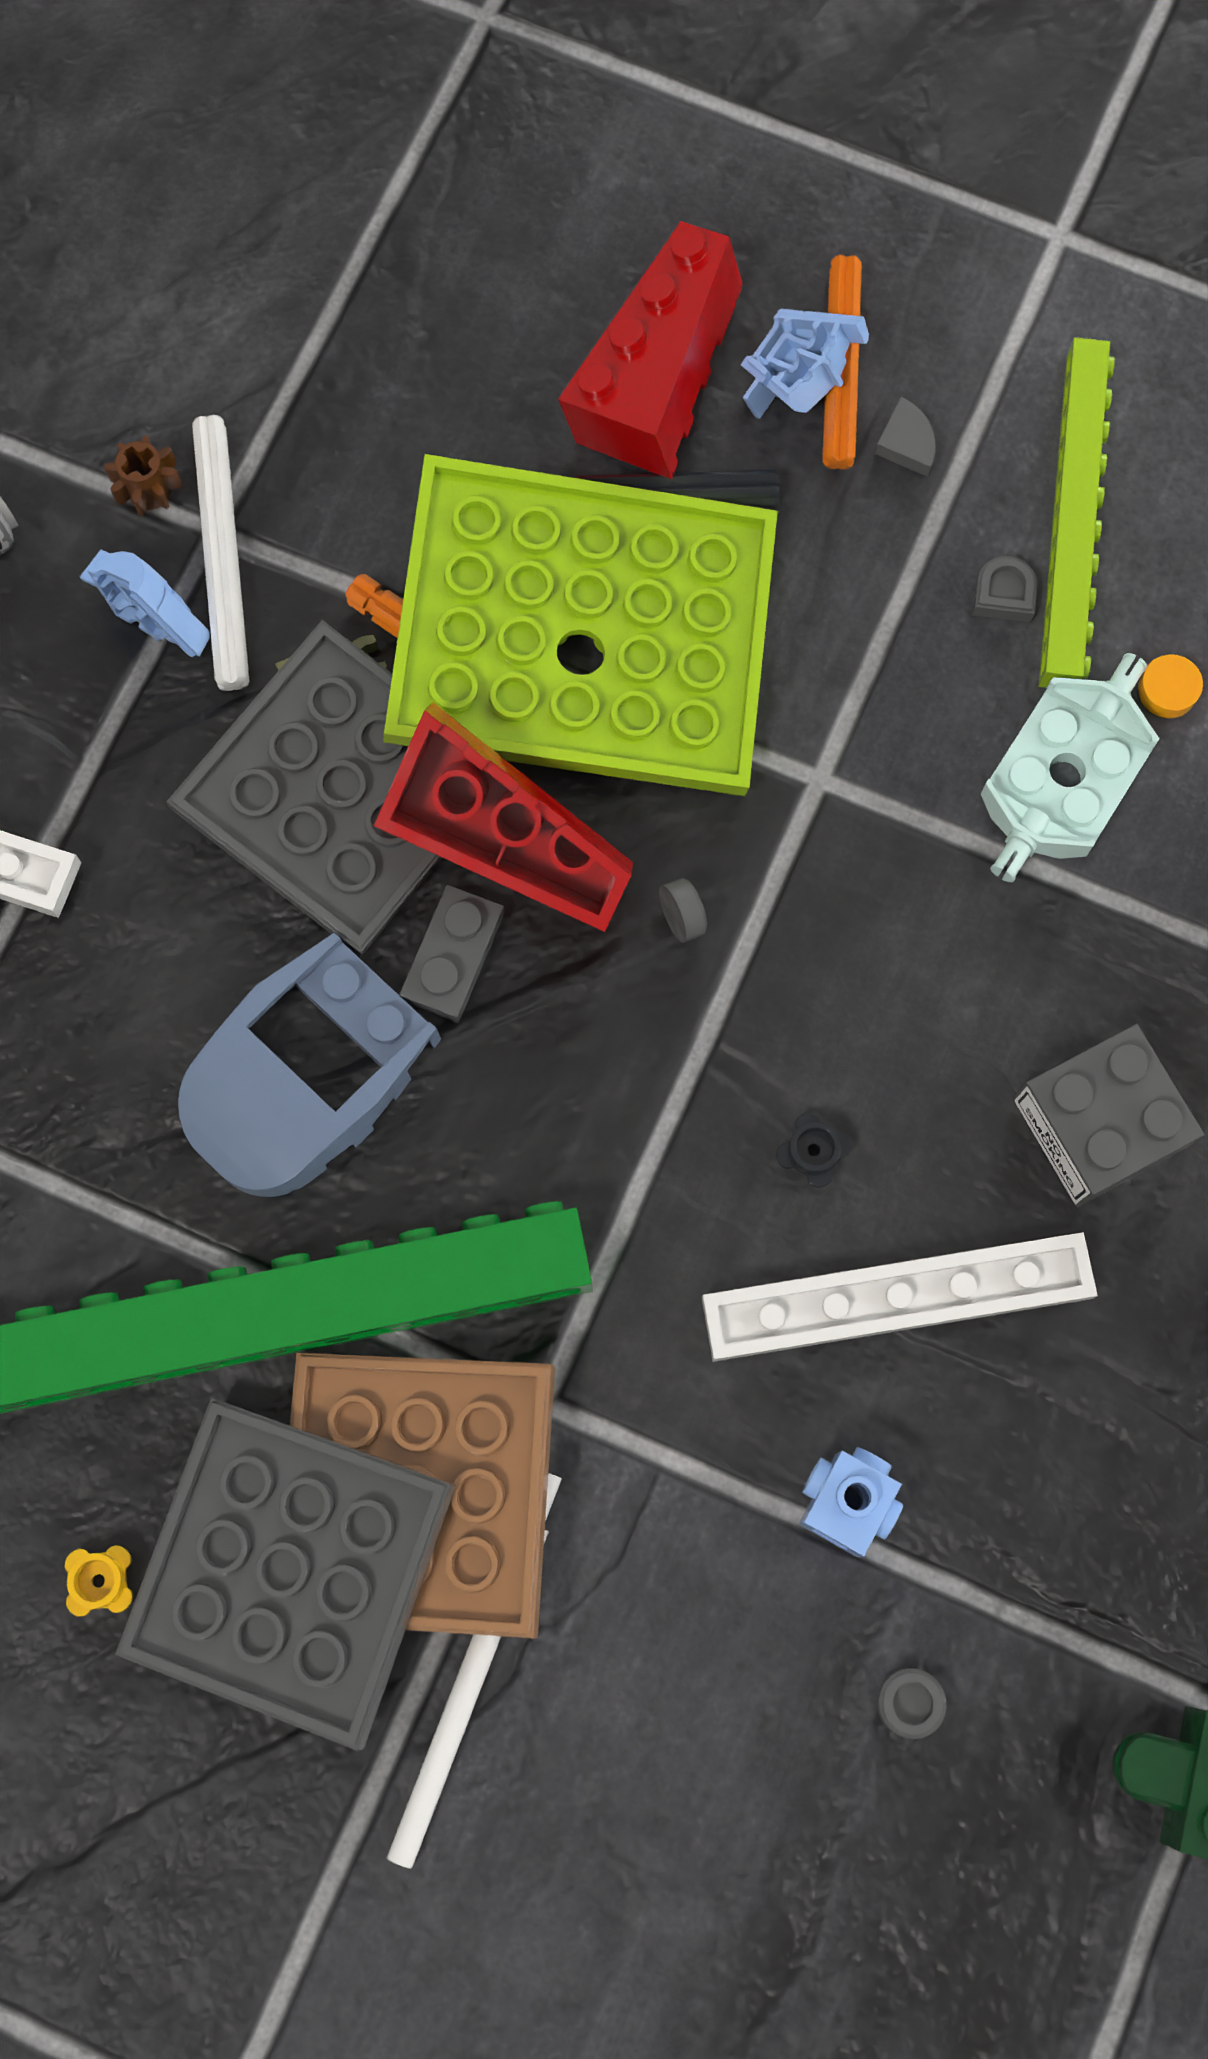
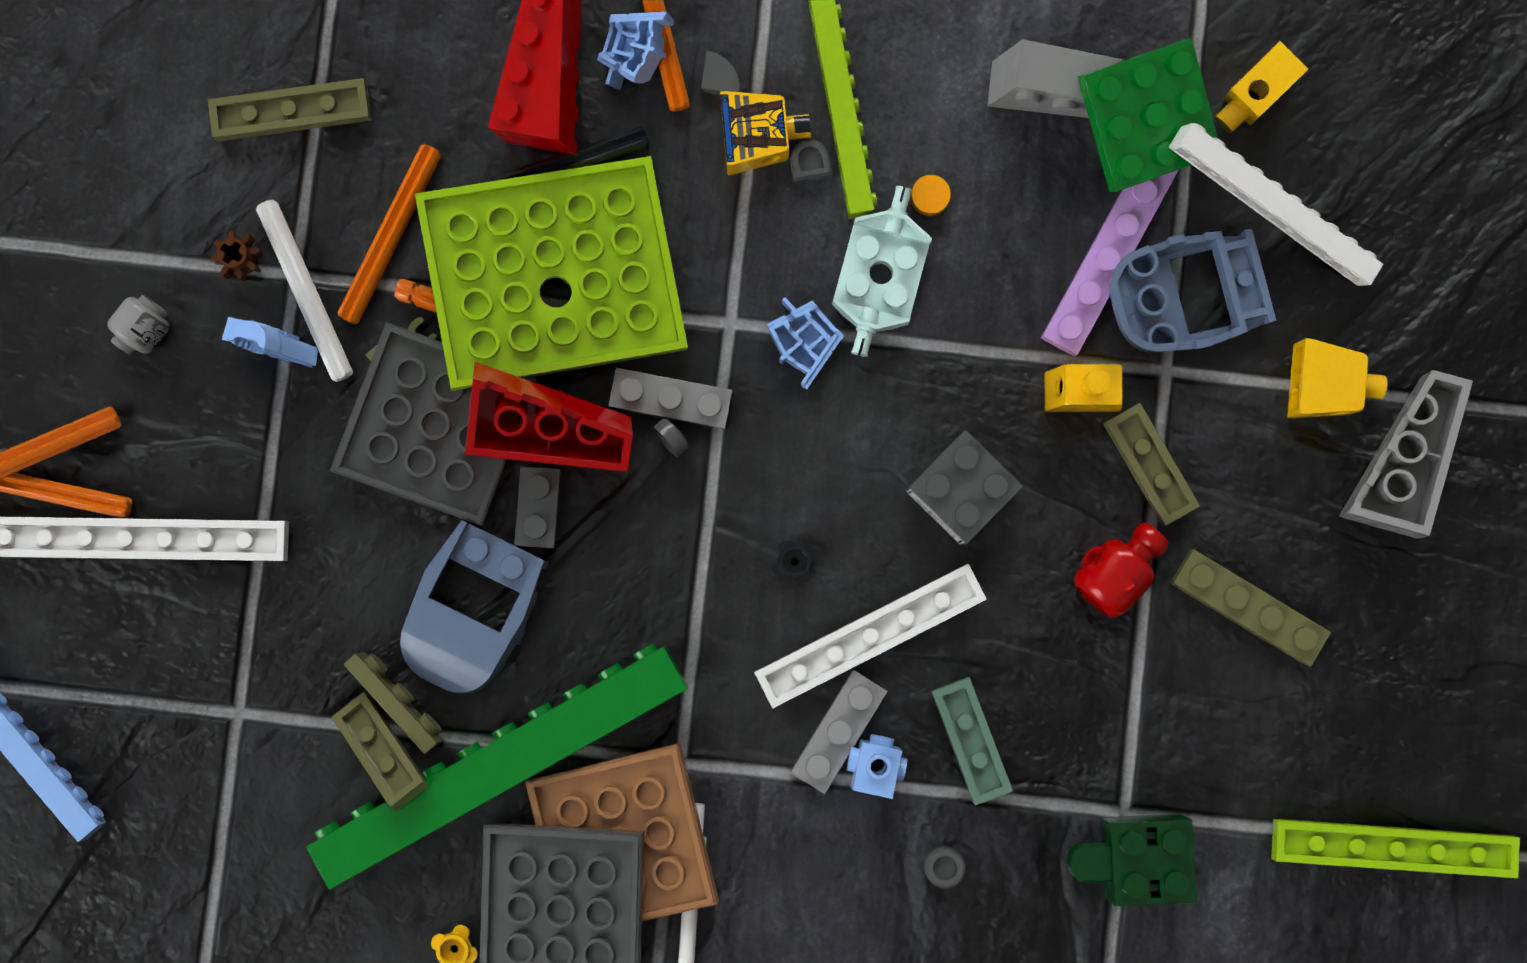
camera: 20 degrees left, 10 degrees up
(94, 1233) = (380, 752): none -> olive plate
(144, 1168) = (395, 701): none -> olive plate
(287, 308) = (289, 109): none -> olive plate
(364, 514) = (389, 234): none -> orange axle
(709, 859) = (670, 398): none -> light grey plate
(805, 1431) = (838, 731): none -> light grey plate
(924, 828) = (804, 339): none -> light blue piece
(944, 521) = (758, 130): none -> torso
(1012, 1512) = (971, 741): none -> sand green plate

